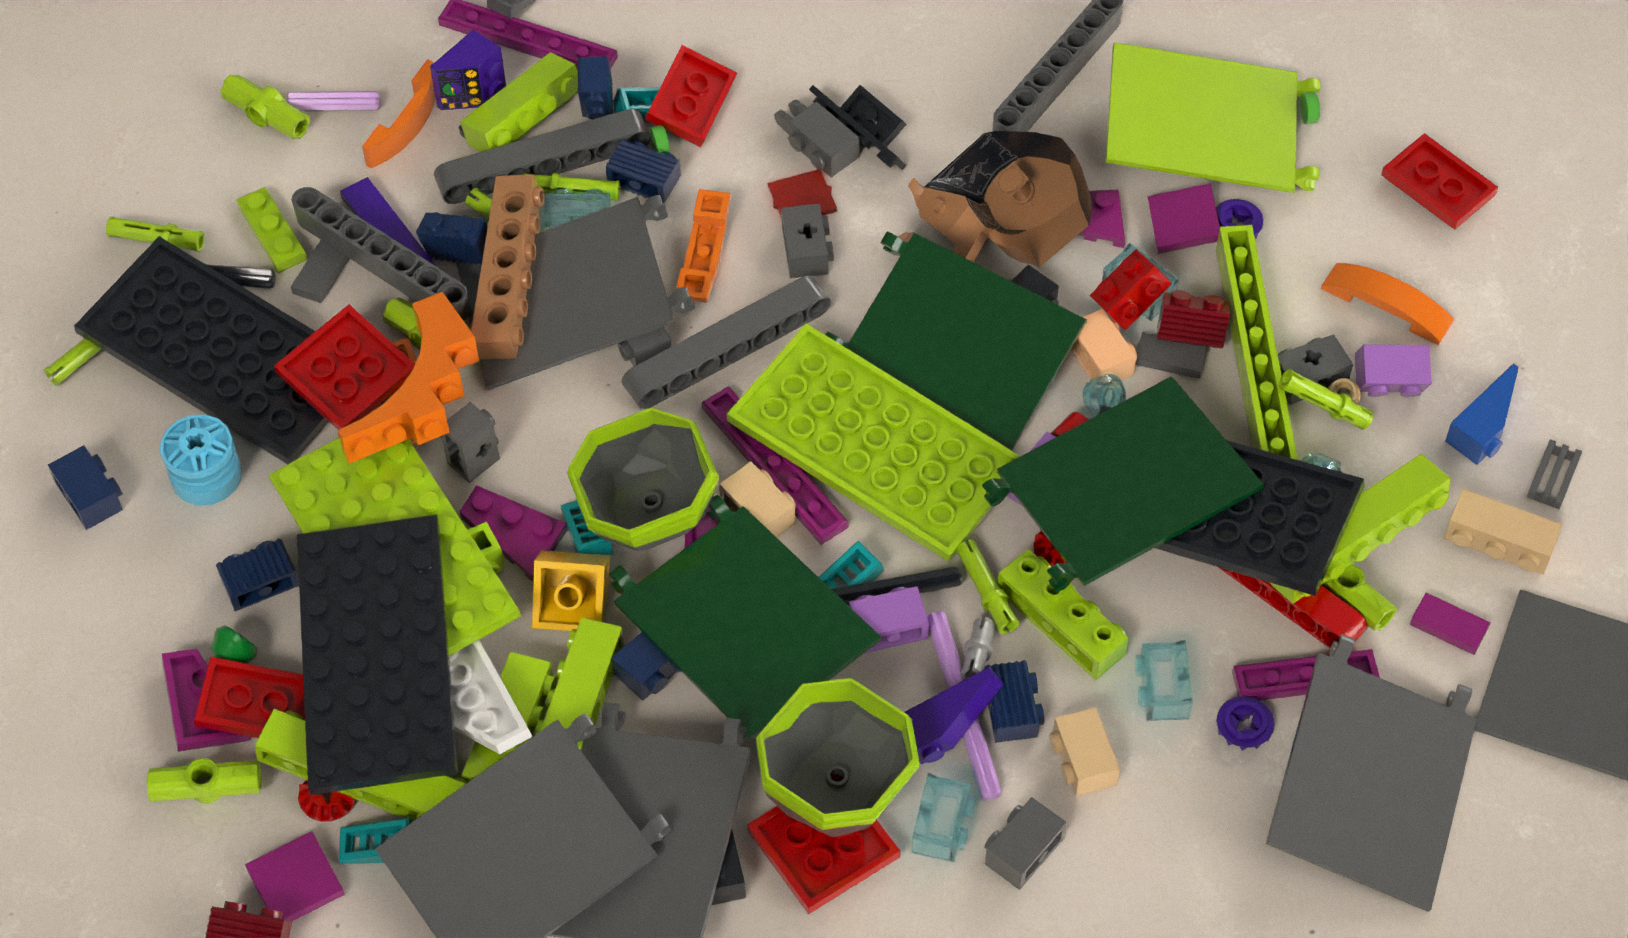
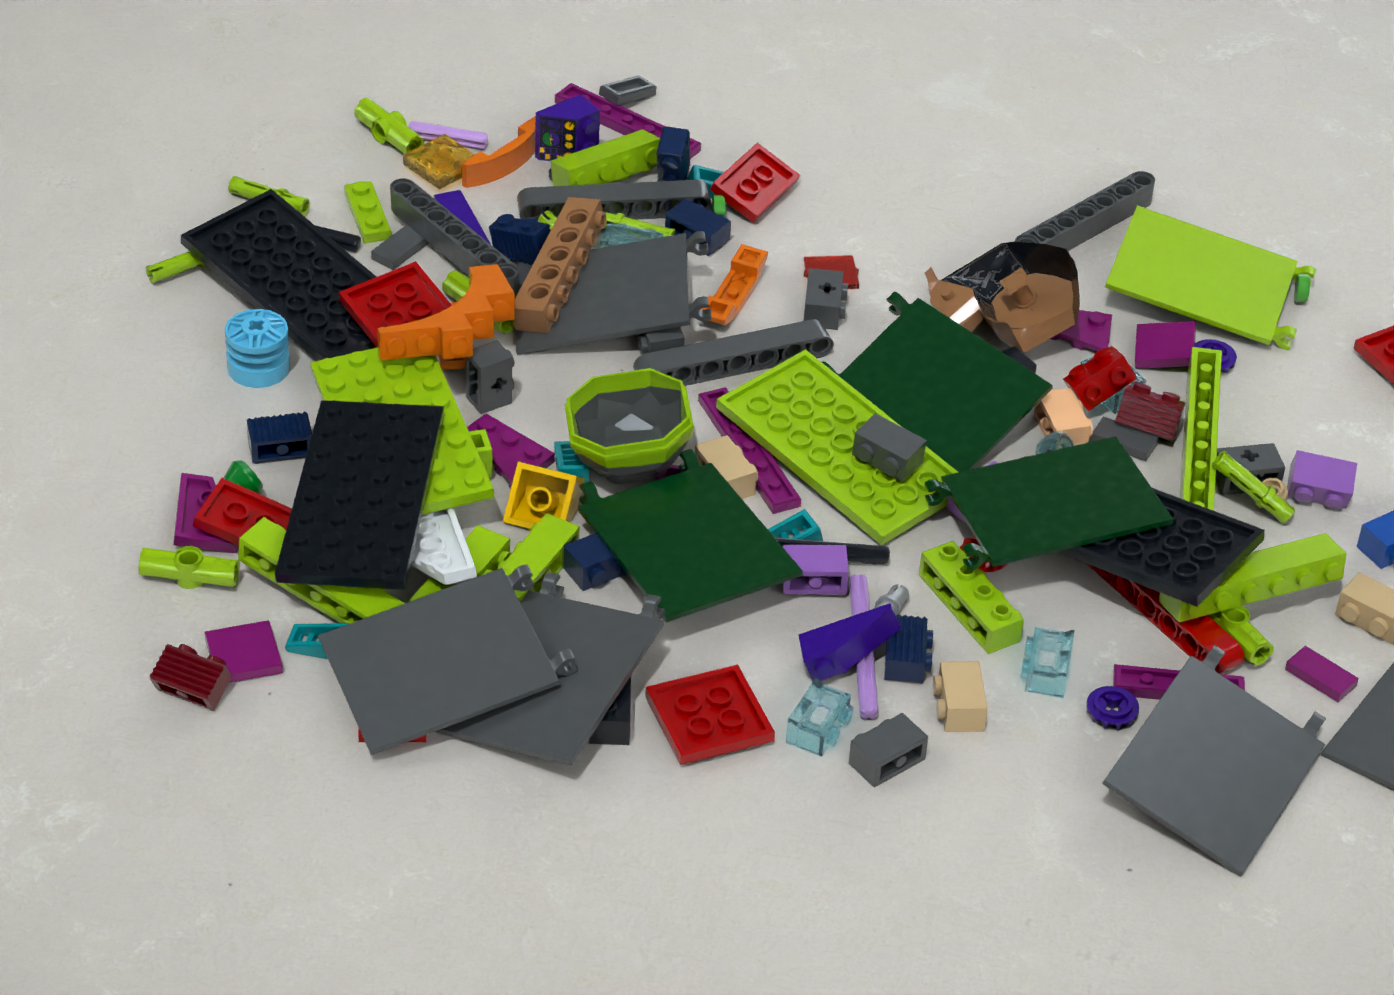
camera: 10 degrees right, 15 degrees down
(86, 487) = (155, 351): dark blue brick -> none
(317, 808) = (278, 606): red gear -> none
(334, 141) = (438, 161): none -> clear yellow plate
(819, 136) = (859, 231): dark grey hinge -> none
(834, 732) = (735, 637): dark grey rock -> none
(870, 119) = (904, 225): black bracket -> none
(930, 441) = (889, 447): none -> dark grey brick
(993, 598) = (912, 573): lime pin -> none
(1391, 295) = (1338, 432): orange slope -> none

